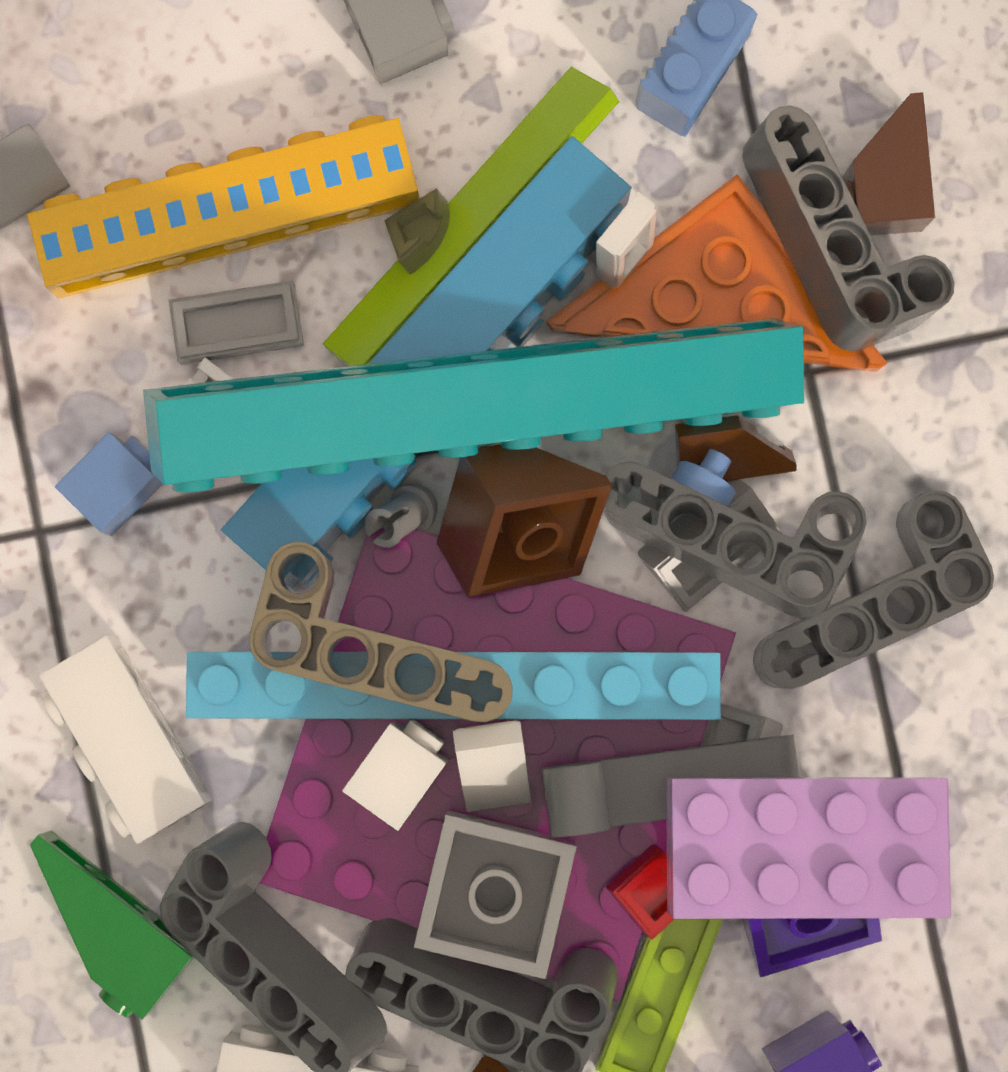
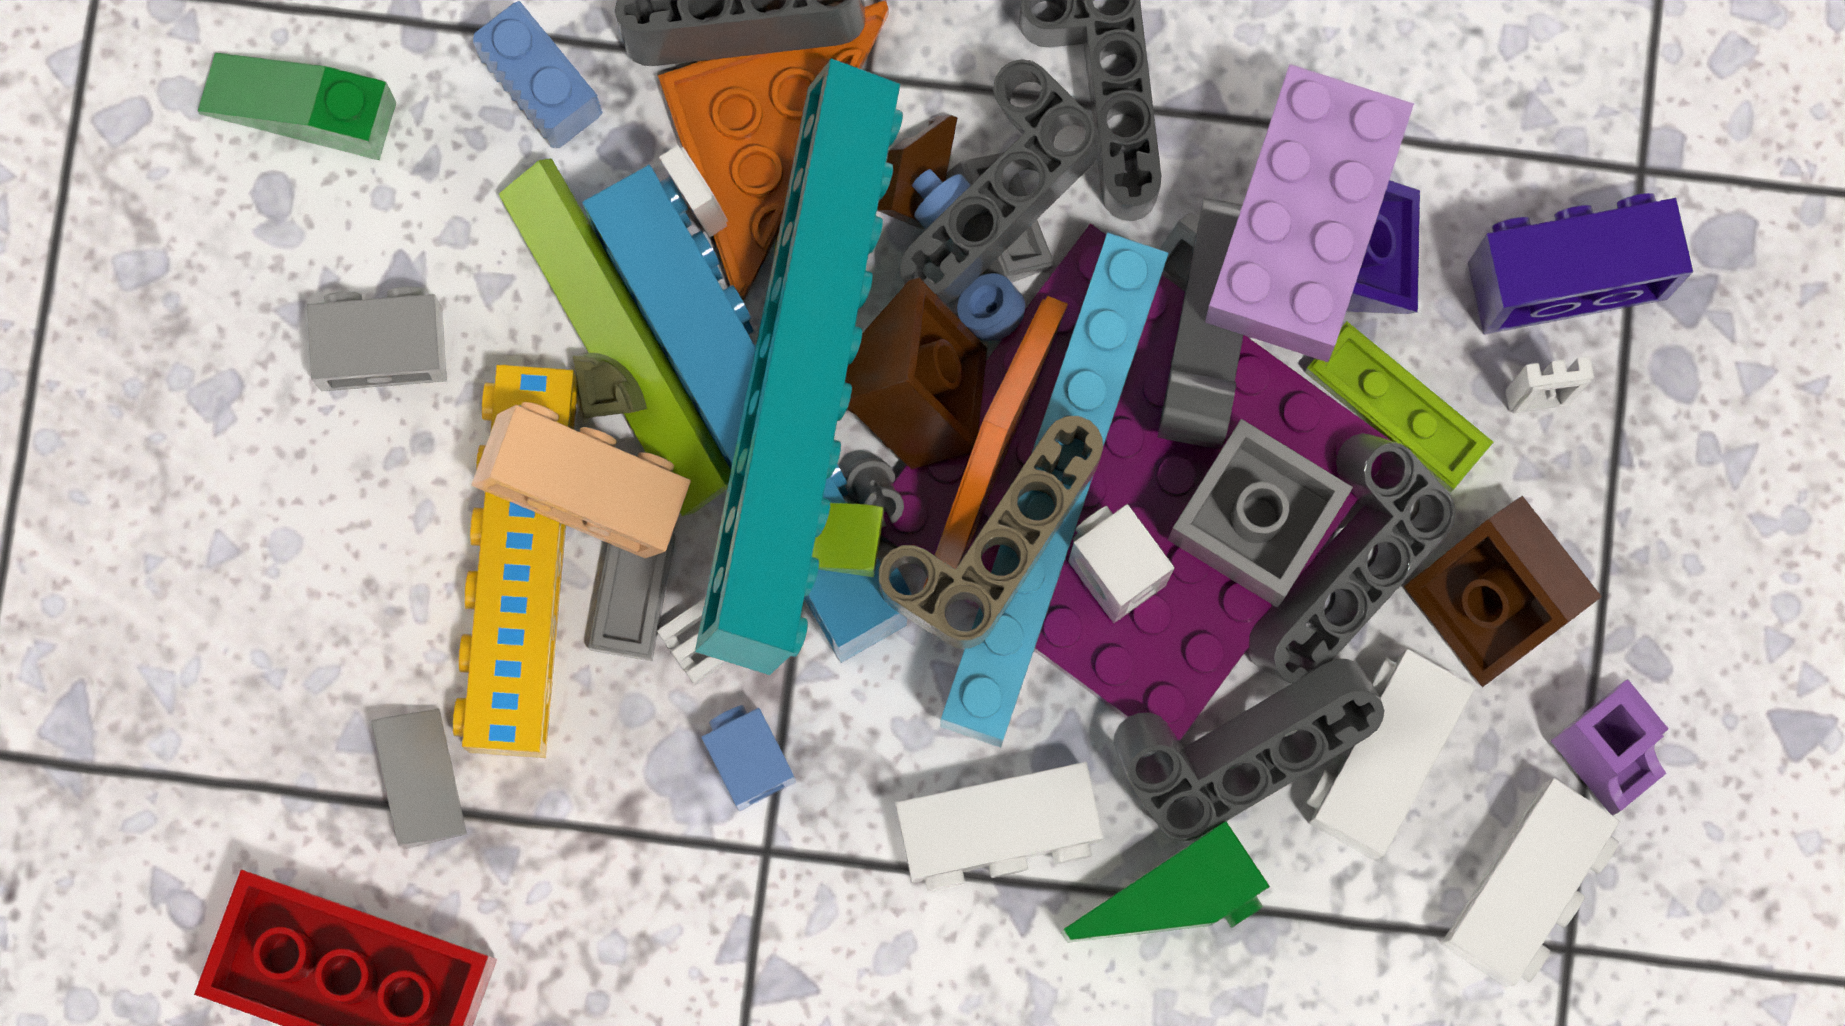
camera: 70 degrees left, 5 degrees down
(310, 233) = (582, 480): none -> light nougat brick
(324, 504) = (850, 539): none -> lime slope
(485, 612) = (998, 432): none -> orange tile
(492, 765) = (1142, 474): white tile -> none
(618, 565) = (991, 307): none -> medium blue tile
(643, 891) = (1304, 381): red tile -> none

